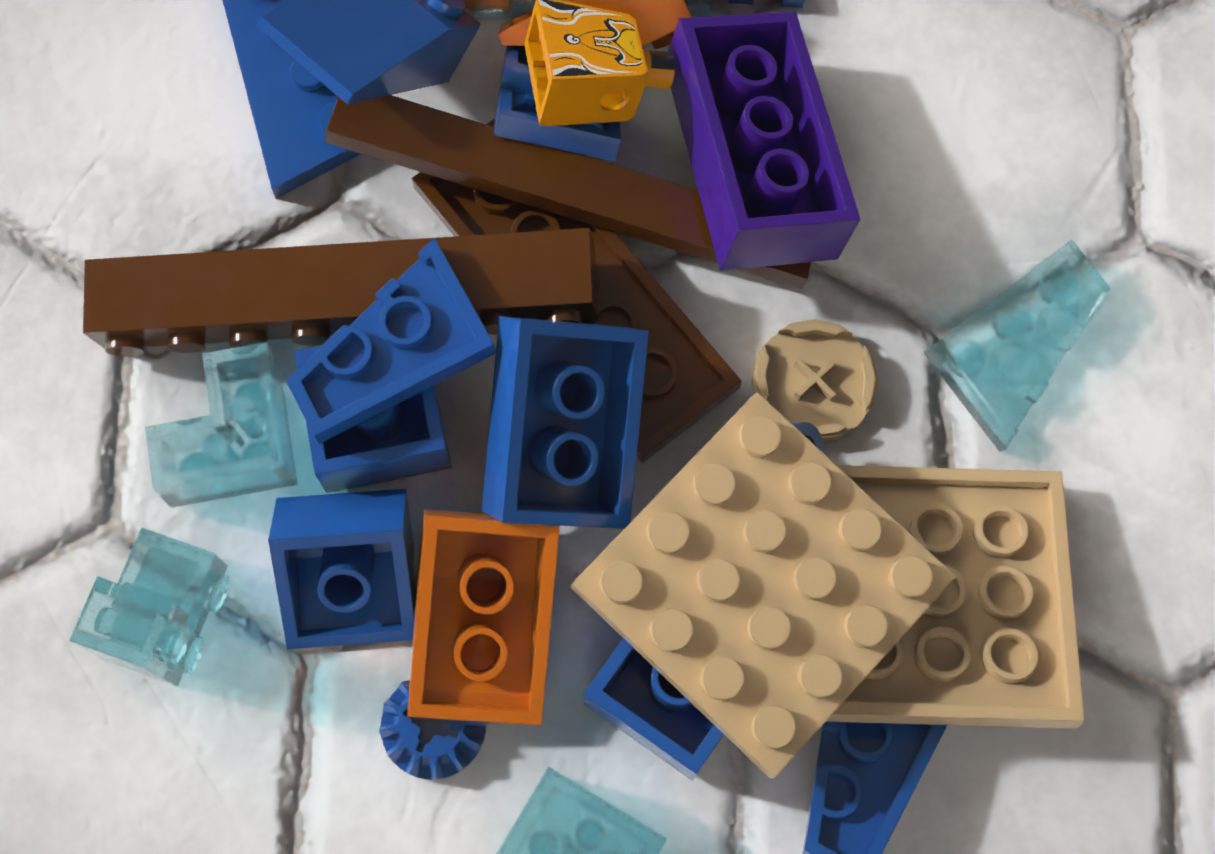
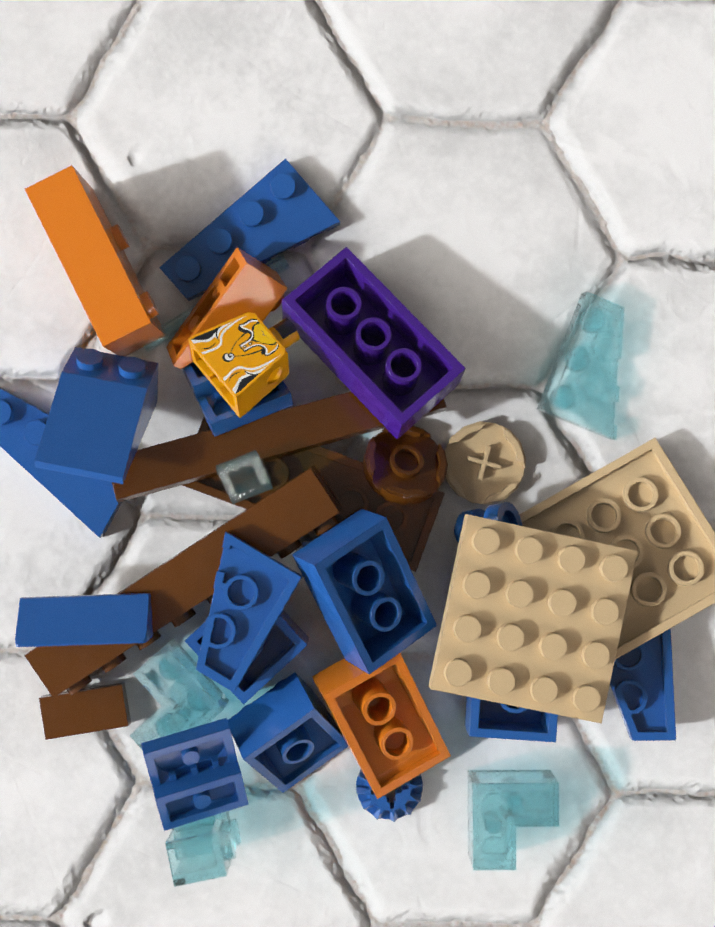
camera: 30 degrees left, 15 degrees up
(107, 387) = (85, 711): none -> reddish brown tile
(189, 251) = (84, 620): none -> blue slope
(193, 525) = (194, 774): none -> blue slope
(500, 199) = (244, 476): none -> clear light blue slope
(710, 316) = (406, 467): none -> reddish brown tile

